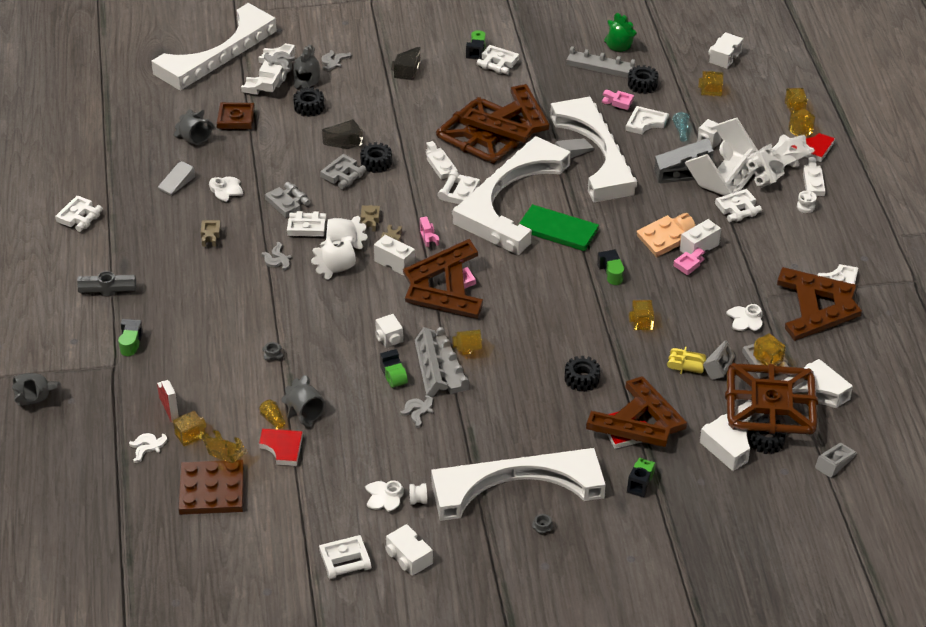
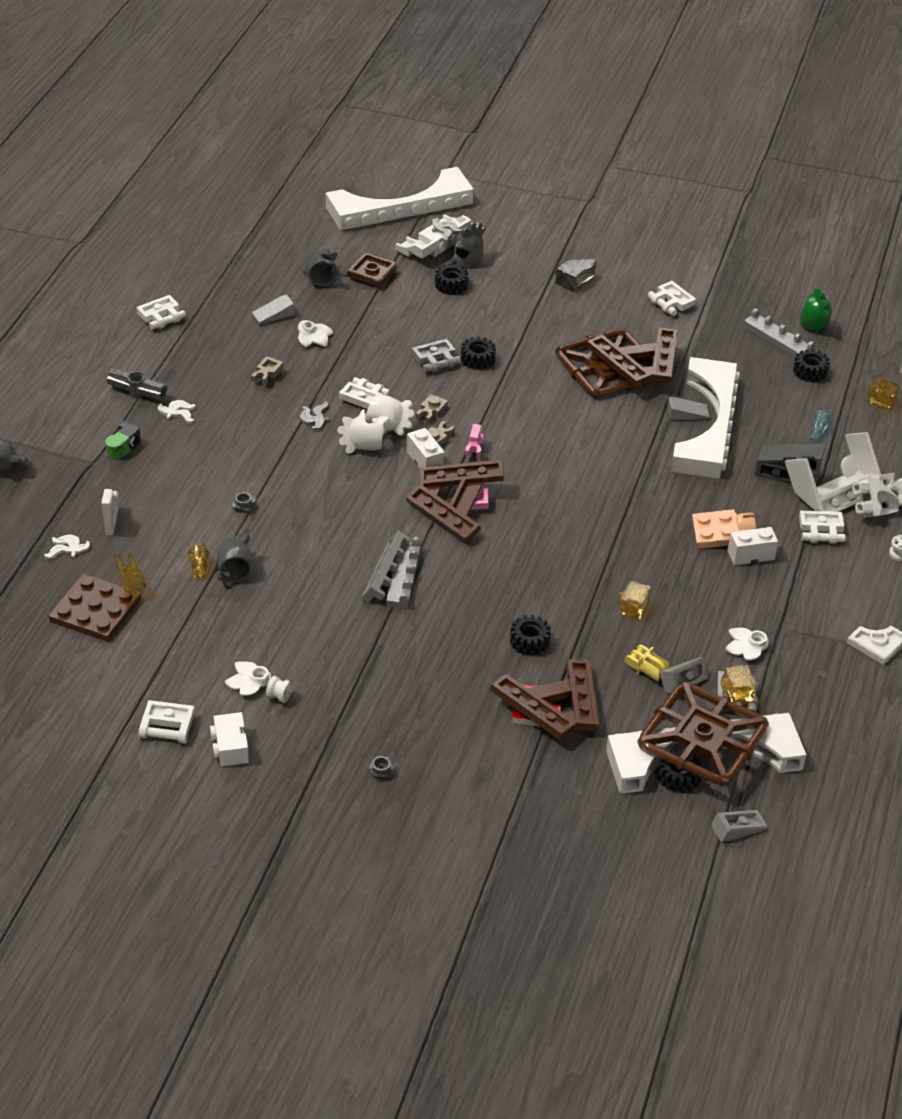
camera: 25 degrees right, 0 degrees up
(150, 295) = (174, 410): none -> white piece
(189, 428) = (112, 542): clear yellow brick -> none
(282, 200) = (358, 364): light grey plate -> none
(283, 444) = (189, 593): red tile -> none
(332, 64) = (502, 250): light grey piece -> none
(343, 135) = (460, 321): clear smoke slope -> none
(389, 331) = (366, 522): white brick -> none
(392, 368) = (344, 559): leg -> none
(422, 408) = (347, 606): light grey piece -> none
(439, 160) = (540, 378): white hinge -> none
(465, 187) = (543, 415): white plate -> none
(467, 341) = (435, 560): clear yellow brick -> none
(477, 46) = (658, 277): black leg -> none
(509, 236) = (554, 473): white brick -> none
(535, 158) = (639, 406): white arch -> none
(559, 227) = (614, 483): green tile -> none
(574, 470) = (325, 696): white arch -> none
(613, 266) = (639, 540): leg -> none
(620, 99) = (771, 378): bright pink plate -> none
(640, 477) = (514, 759): black leg -> none
(645, 119) = (786, 406): white tile -> none
(689, 262) = (725, 565): bright pink plate -> none
(708, 130) = (837, 444): white brick -> none
(813, 319) = (821, 671): reddish brown plate -> none

